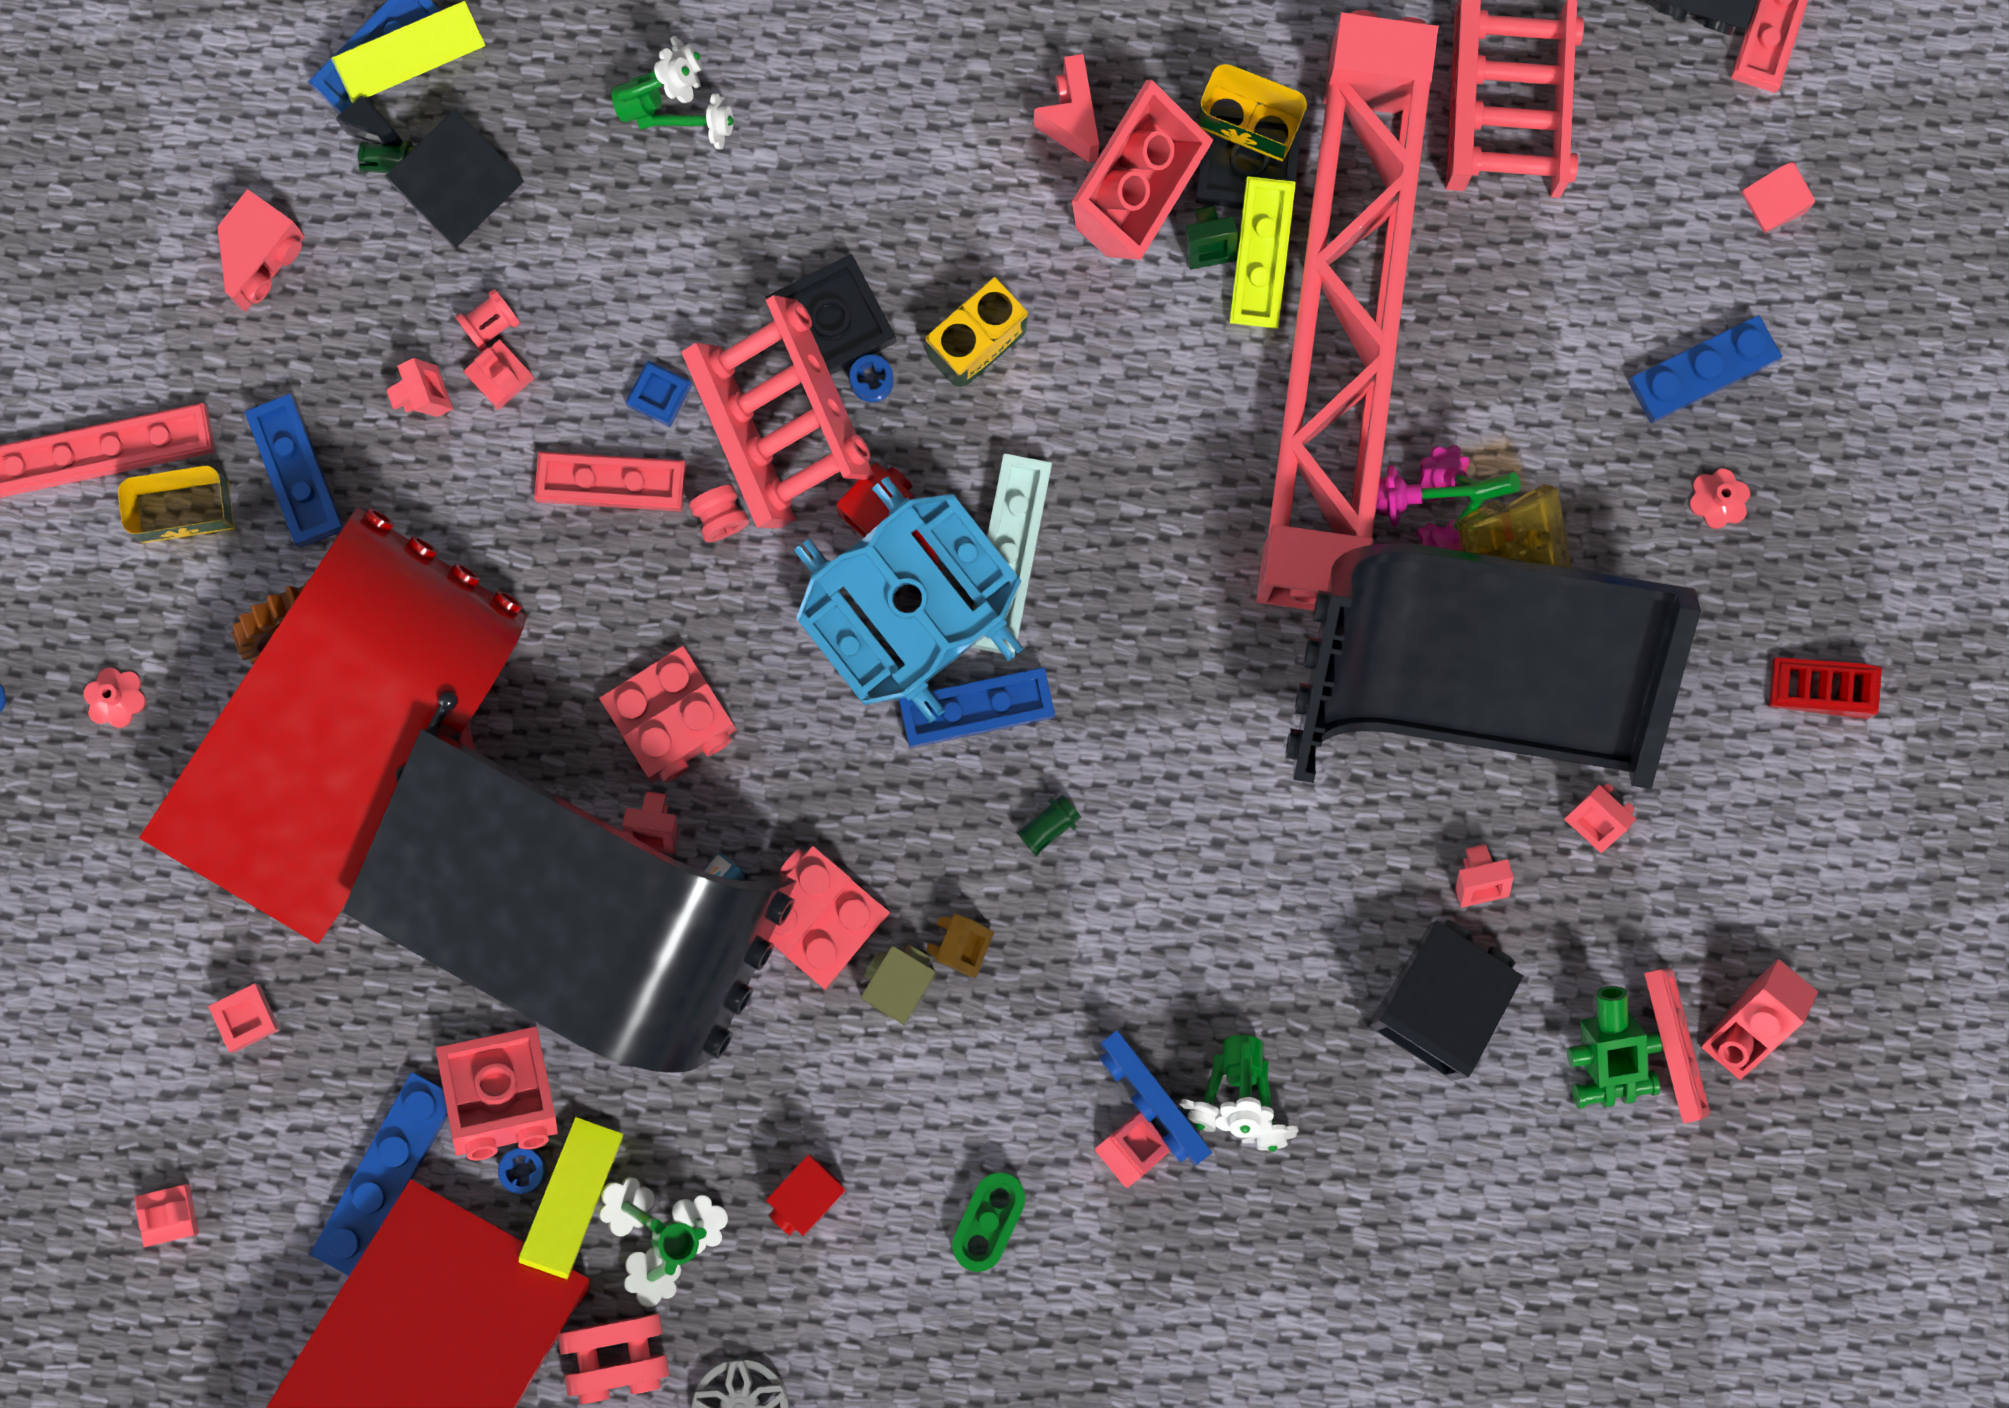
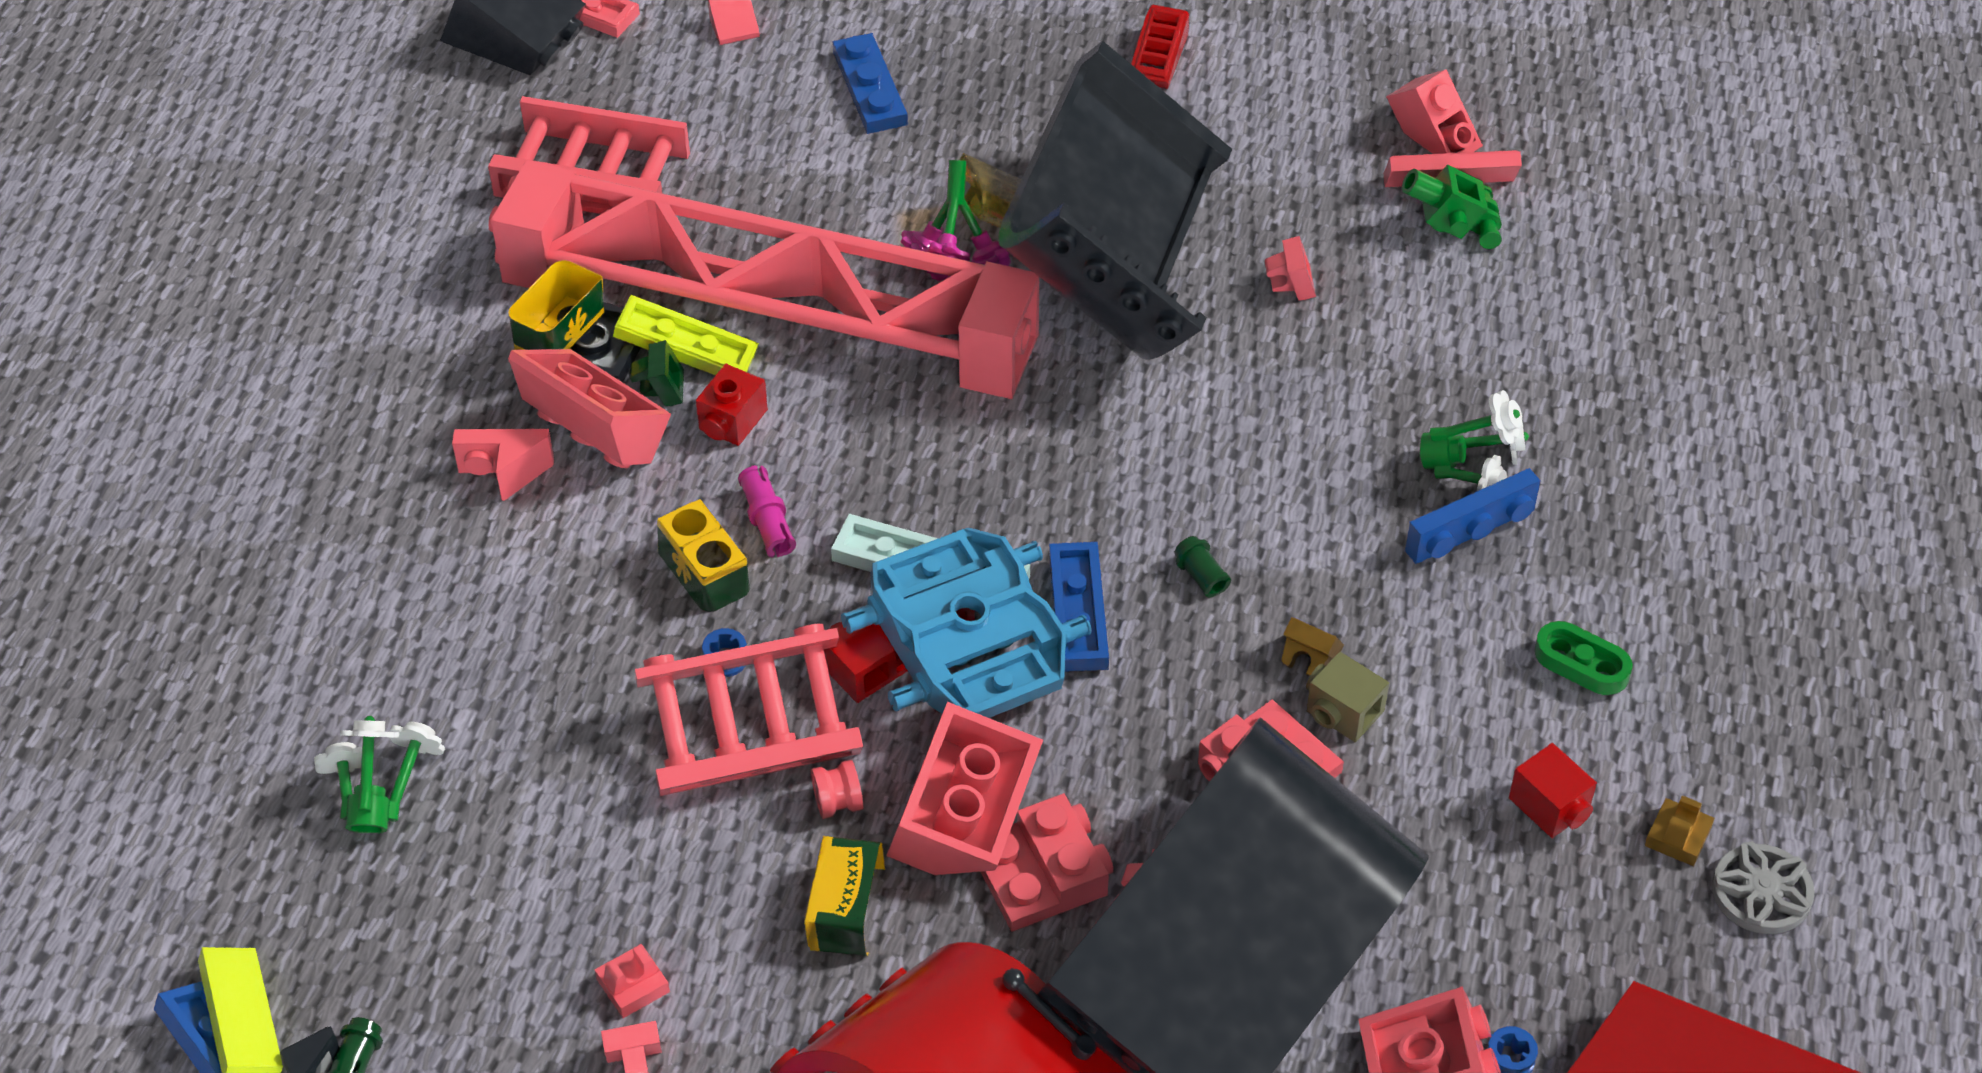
camera: 80 degrees left, 30 degrees down
(454, 178) = (402, 981): black tile -> none
(486, 332) = (571, 976): coral bush -> none
(571, 1198) = (1548, 994): neon yellow tile -> none
(594, 1381) = (1730, 970): coral brick -> none
(598, 537) = (841, 895): none -> piece
(610, 481) = (776, 892): coral tile -> none
(658, 394) = (692, 836): blue tile -> none
(672, 1242) = (1585, 898): white plant -> none
(716, 632) = (965, 795): none -> coral slope
(794, 1325) = (1680, 830): none -> pearl gold tile
(842, 312) = (624, 654): black plate -> none
(1049, 381) = (766, 511): none -> dark pink pin
(1132, 1149) = (1519, 548): coral slope -> none
(1178, 317) = (731, 405): none -> red brick
(1447, 1000) = (1406, 302): black slope -> none
(1601, 818) = (1250, 189): coral tile -> none
(1712, 505) = (983, 91): coral plant -> none

